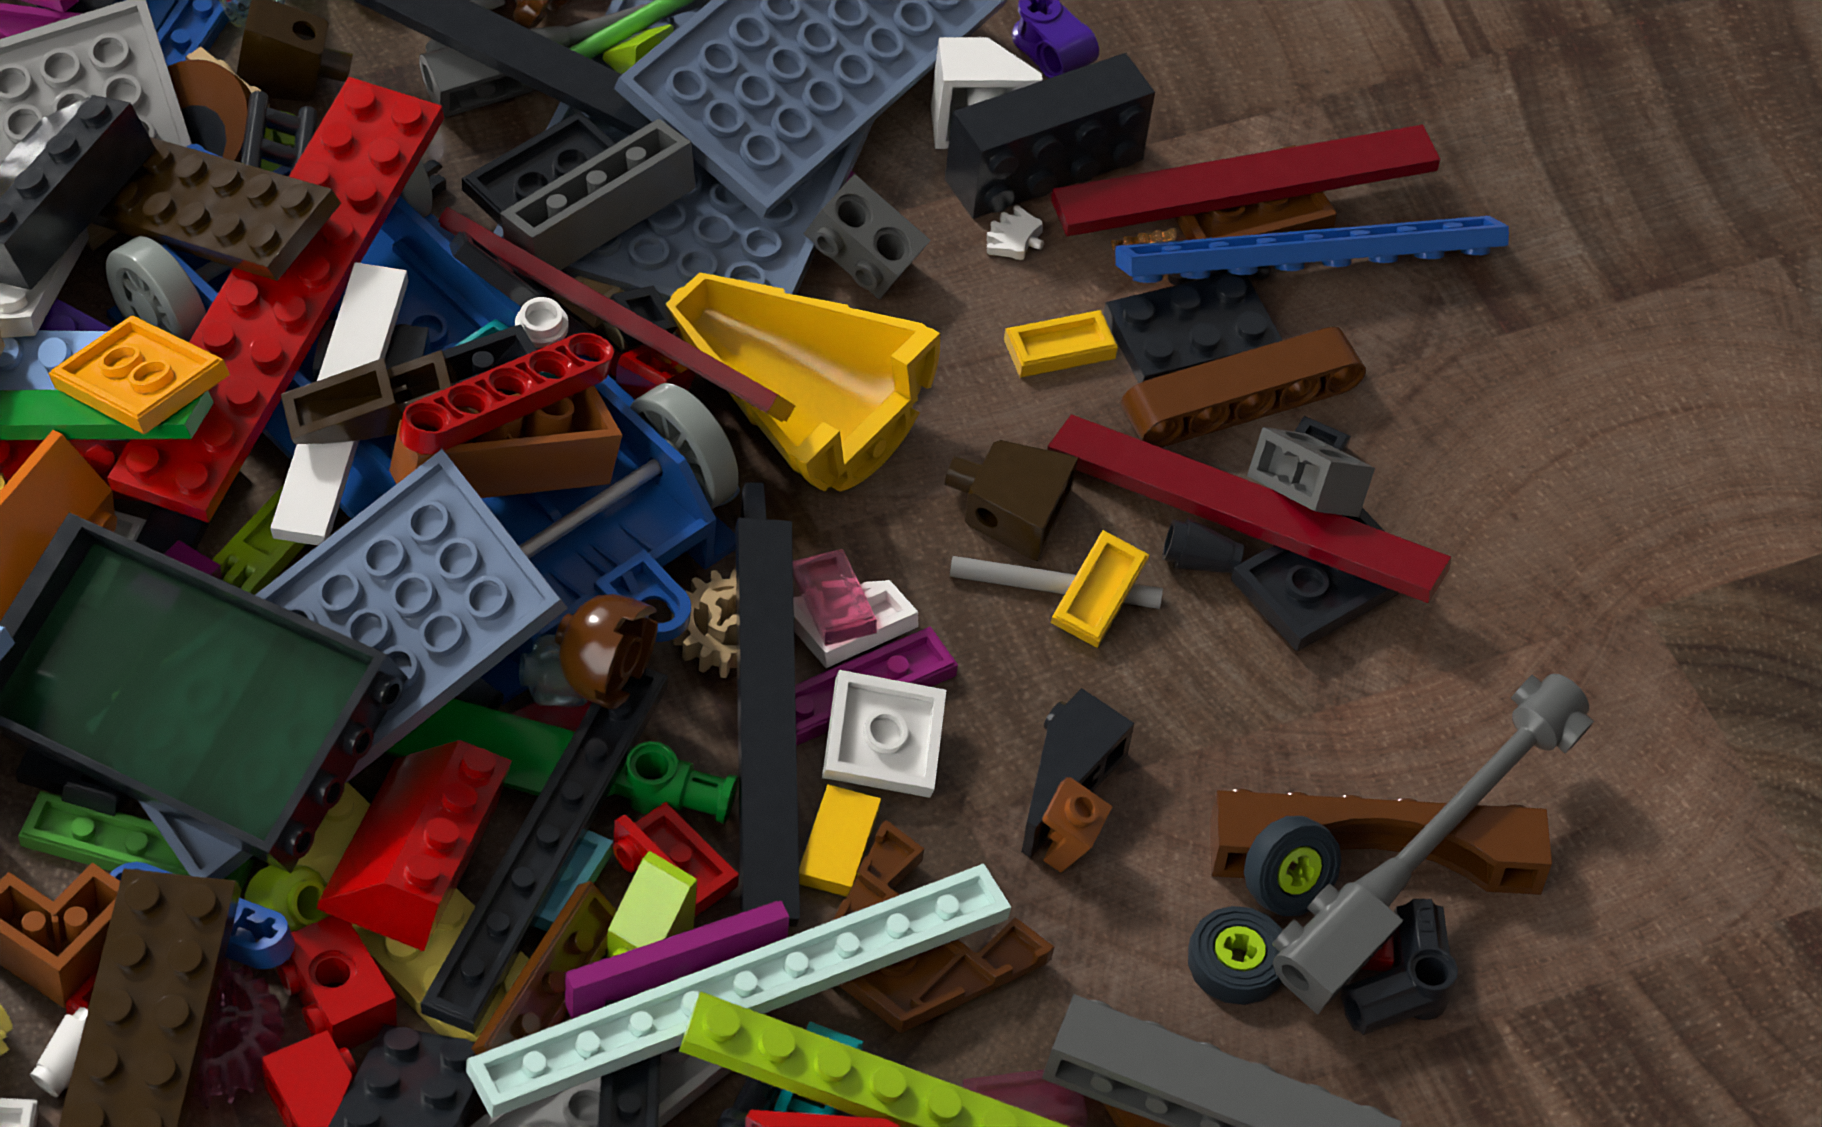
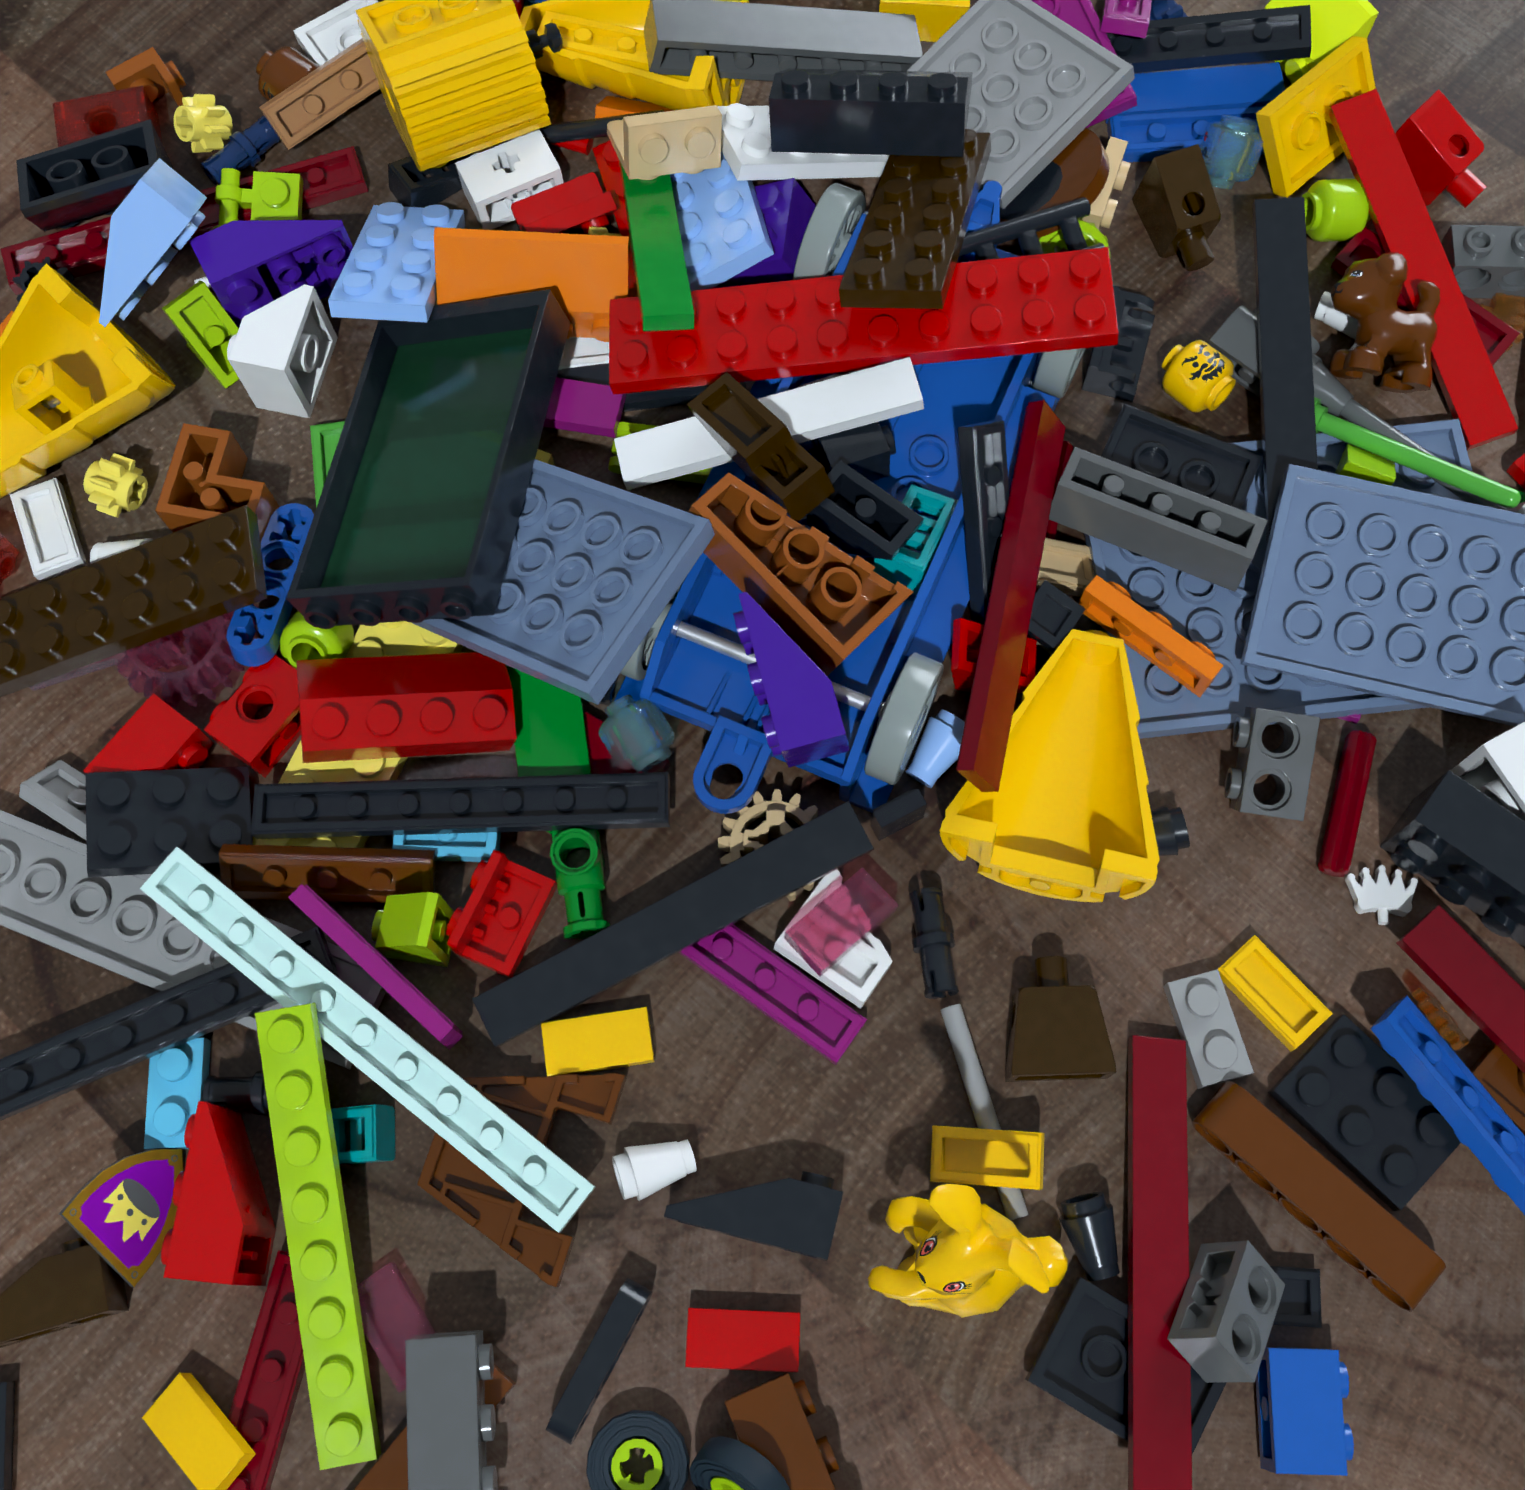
camera: 75 degrees right, 20 degrees up
(138, 374) = (696, 262): light orange tile -> none
(468, 122) = (1198, 376): none -> yellow head
(498, 408) = (791, 542): red beam -> none
(543, 321) = (945, 536): white plate -> none
(605, 646) = (634, 755): reddish brown cylinder -> none
(616, 487) = (800, 697): none -> dark purple slope
(718, 253) = (1150, 635): none -> orange plate
(884, 733) = (716, 1032): white plate -> none
(888, 548) = (933, 943): none -> black pin
(928, 218) = (1347, 803): none -> dark red axle
(981, 837) = (652, 1167): none -> white cone
(1056, 395) = (1209, 1028): none -> light grey plate
(1074, 821) = (688, 1250): dark orange bracket -> none
(1135, 943) = (599, 1361): none -> black beam
(1167, 836) = (743, 1340): none -> red tile
(1177, 627) = (964, 1255): none -> yellow animal
(1412, 470) = (1303, 1412): none -> blue brick

